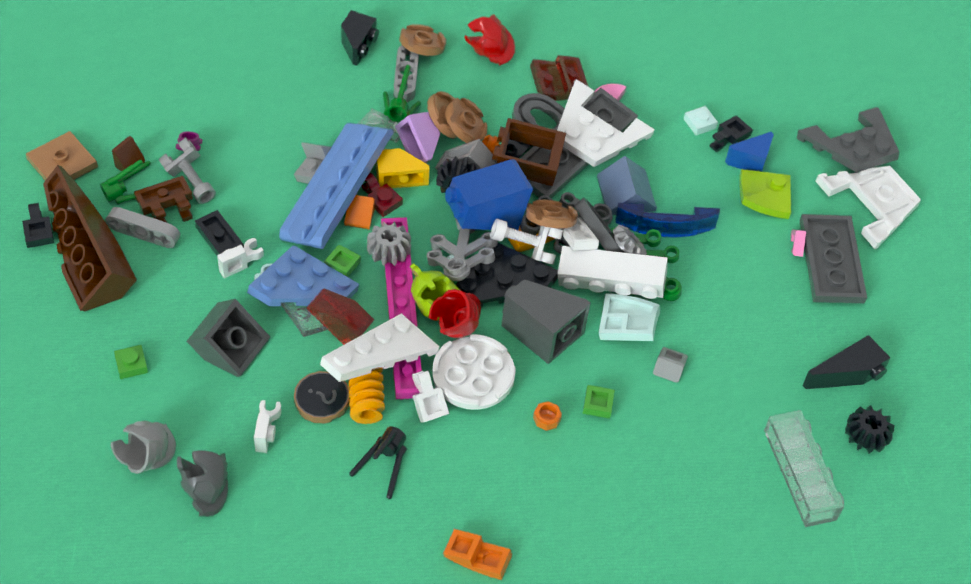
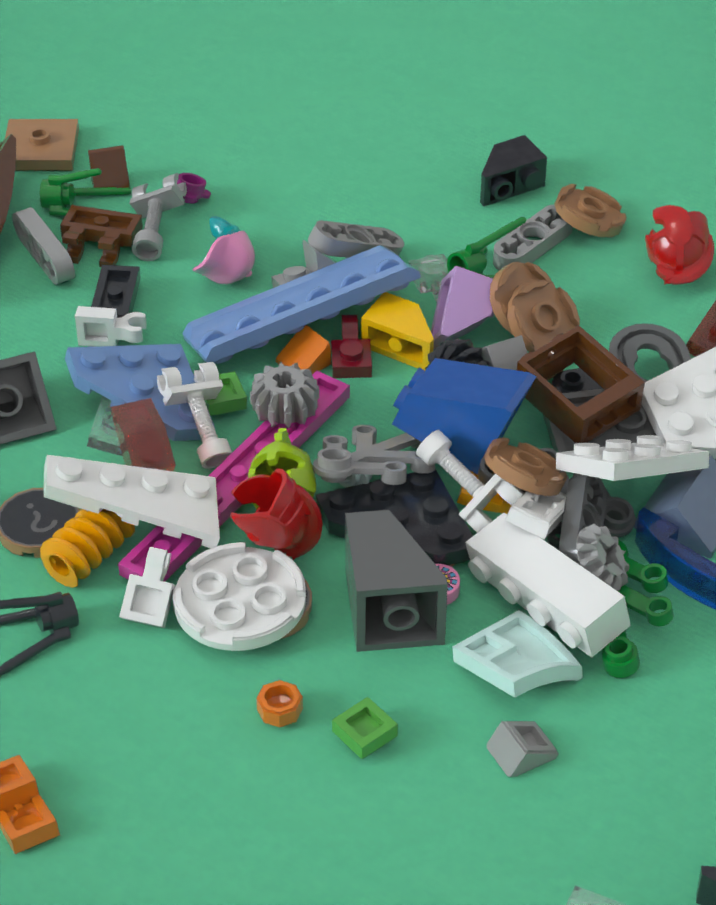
camera: 45 degrees right, 10 degrees down
(258, 172) = (230, 254): none -> bright pink hair
(326, 127) = (351, 239): none -> light grey beam
(327, 274) = (206, 387): none -> white bar
(597, 180) = (630, 460): none -> white plate

